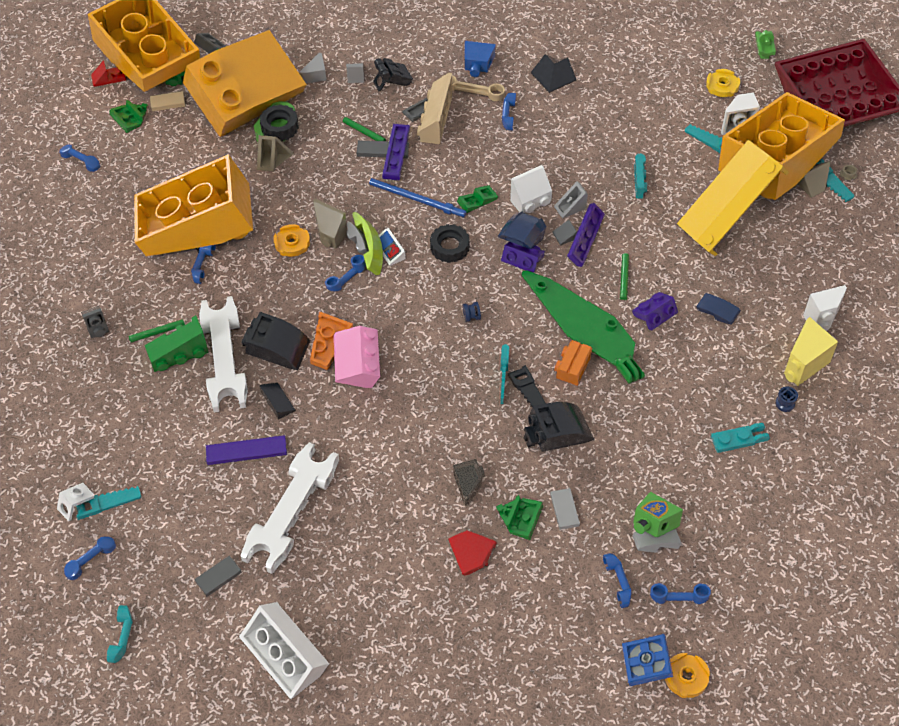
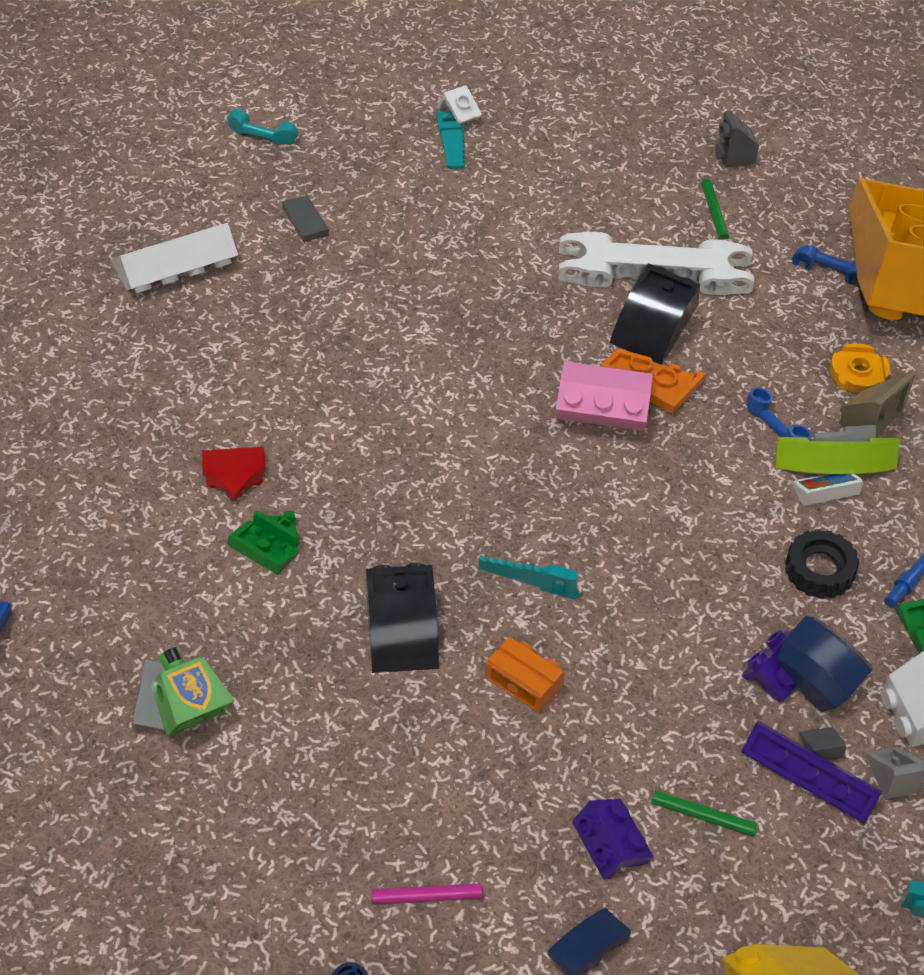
camera: 100 degrees right, 5 degrees down
(73, 568) = (388, 126): blue bar -> none
(177, 347) = (672, 214): green wedge -> none
(246, 450) = (486, 269): dark purple tile -> none
(274, 534) = (415, 318): white piece -> none
(277, 399) = (560, 307): black slope -> none
(468, 479) = (345, 484): clear smoke slope -> none
(469, 311) = (666, 559): dark blue wheel -> none
(526, 386) = (491, 607): black piece -> none
(564, 509) = (260, 596): light grey tile -> none
(587, 324) = (603, 720): green wing -> none
(614, 563) = (144, 627): blue bar -> none
(660, 594) = (65, 675): blue bar -> none
(718, 382) = (426, 893): none -> dark pink bar
(739, 437) = (301, 883): teal hinge -> none

